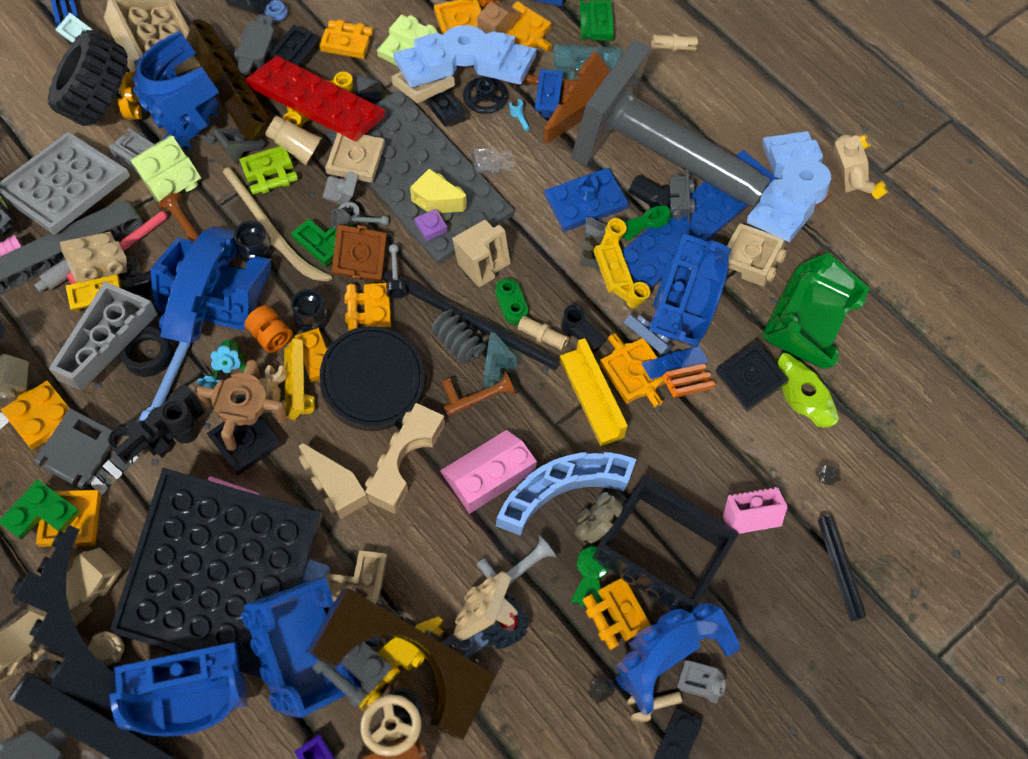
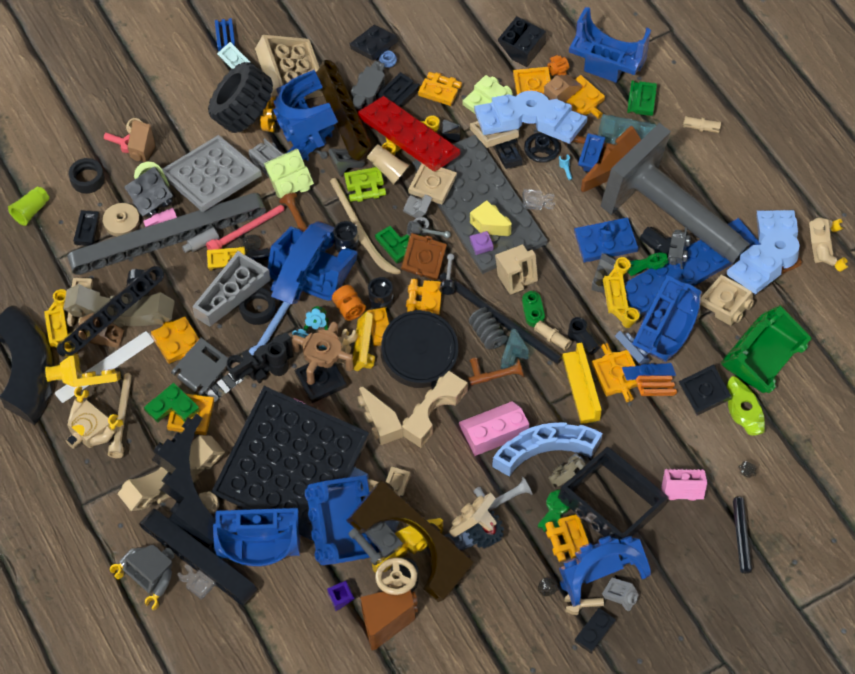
camera: 15 degrees right, 5 degrees down
(94, 257) = (229, 232): tan plate -> none

